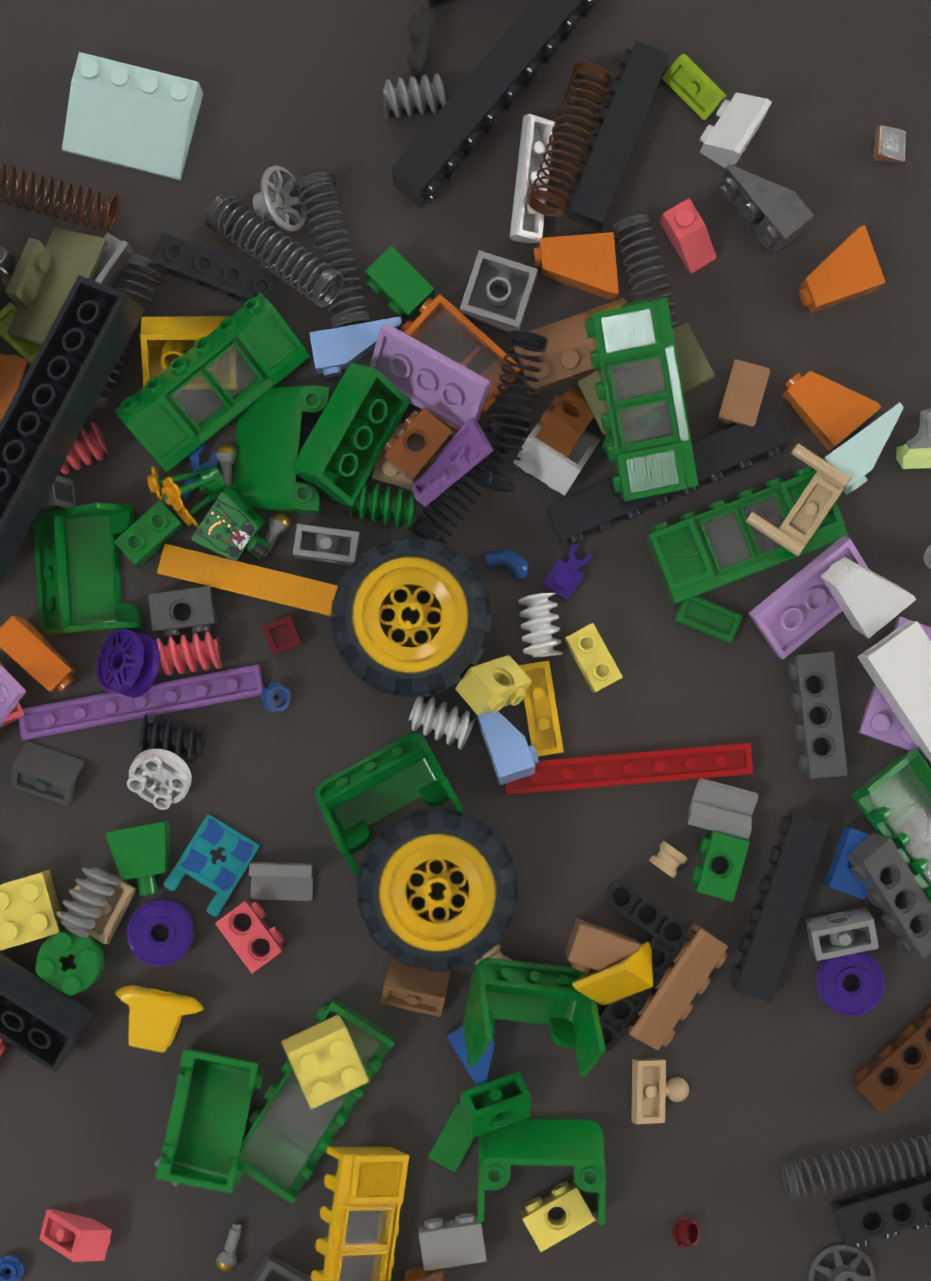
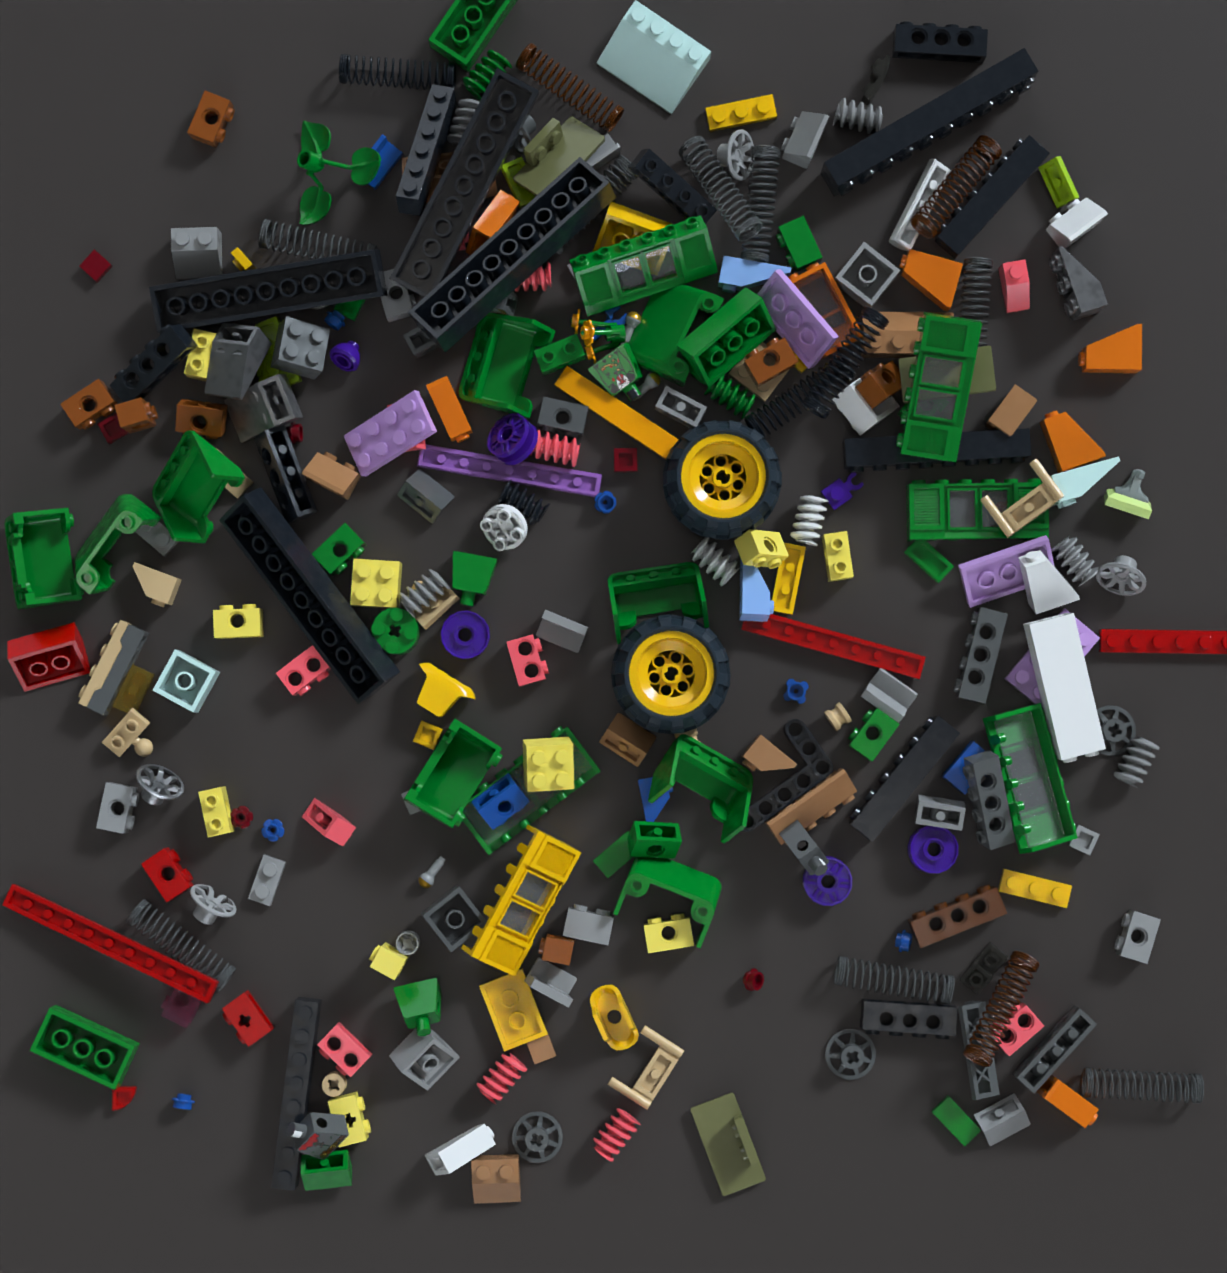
camera: 25 degrees right, 0 degrees up
(161, 1075) = (427, 735): none -> yellow tile
(216, 859) = (521, 598): teal flag -> none
(266, 146) = (741, 113): none -> yellow plate
(283, 1114) = (503, 790): none -> blue brick
(357, 148) = (805, 138): none -> light grey slope
(454, 461) = (796, 380): medium lavender wing -> none
(509, 559) = (805, 467): blue arm -> none
(611, 850) = (801, 687): none -> blue plate
(619, 979) = (773, 783): yellow slope -> none
(650, 1089) = (766, 872): tan plate -> none
(698, 1051) = (810, 855): none -> dark grey torso
(738, 1090) = (837, 891): none -> dark purple wheel
(856, 1111) = (903, 941): none -> blue plate
(889, 144) = (1182, 273): slope -> none
(892, 551) = (1075, 560): none -> light grey piece

